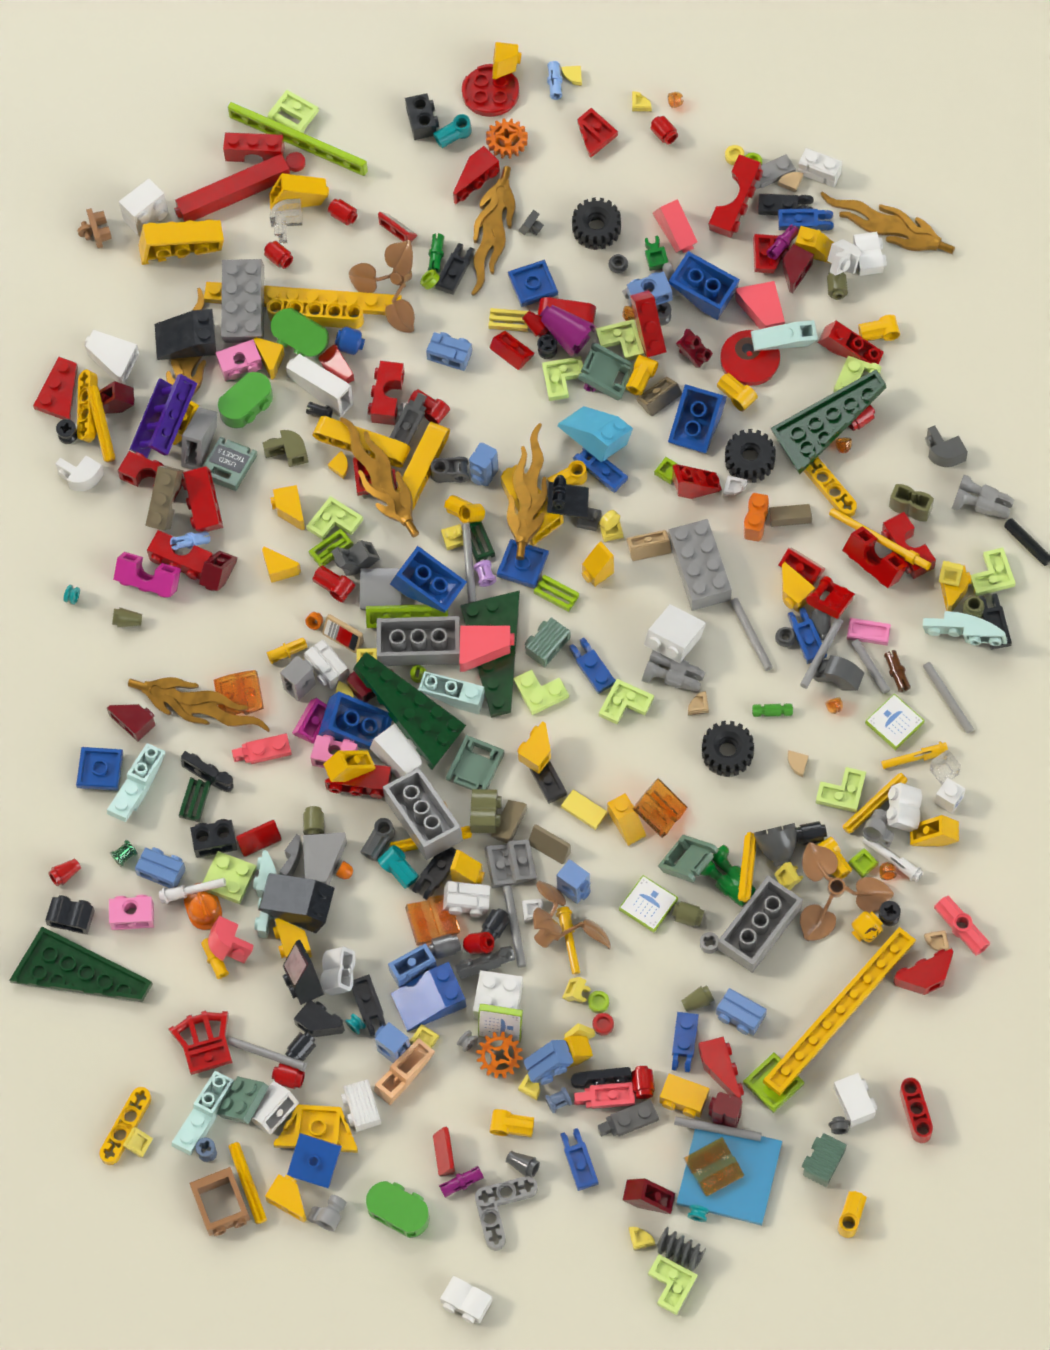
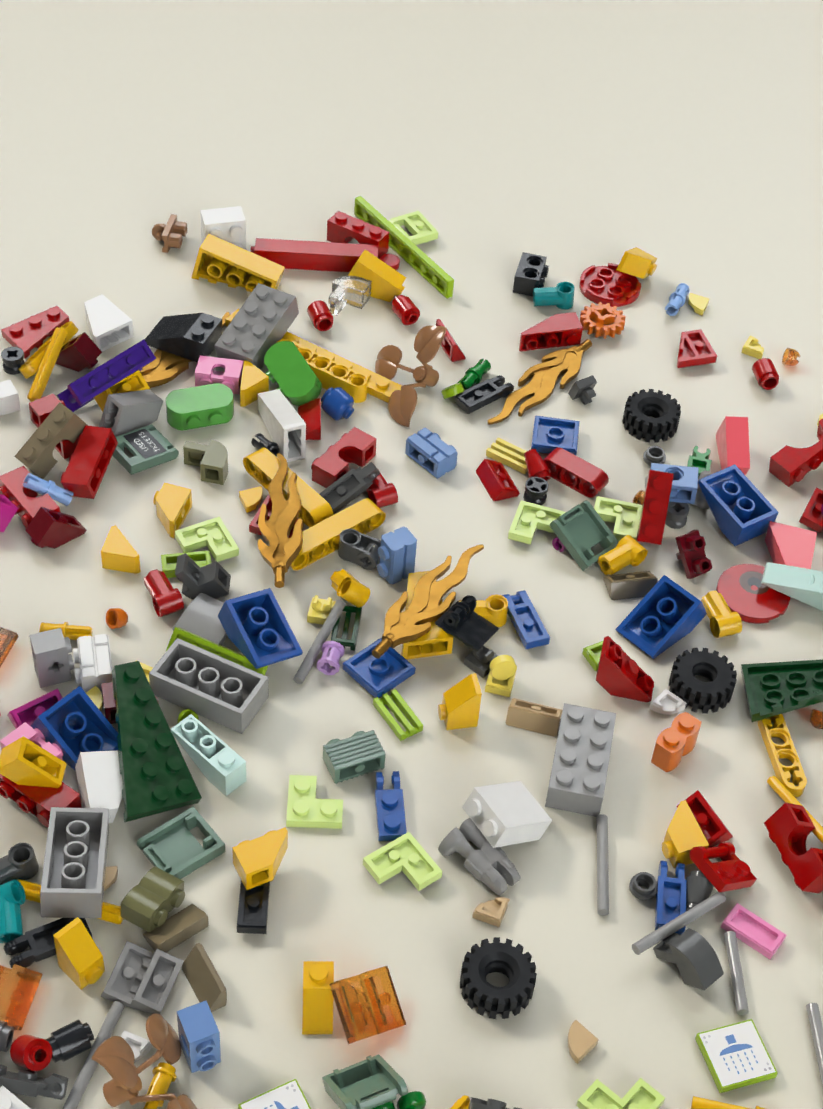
camera: 20 degrees right, 20 degrees down
(343, 633) = (136, 642): slope -> none
(466, 898) = (56, 989): white brick -> none
(483, 644) = (275, 720): coral slope -> none
(499, 673) = (292, 732): dark green wing -> none
(567, 329) = (566, 480): magenta cone -> none
(584, 809) = (275, 961): light yellow tile -> none
(597, 431) = (542, 584): medium azure slope -> none
(772, 710) = (581, 961): bright green axle -> none
(790, 515) = (718, 761): dark tan slope -> none
(834, 705) = (665, 995): clear orange hinge -> none
(897, 671) = (768, 995): reddish brown pin -> none

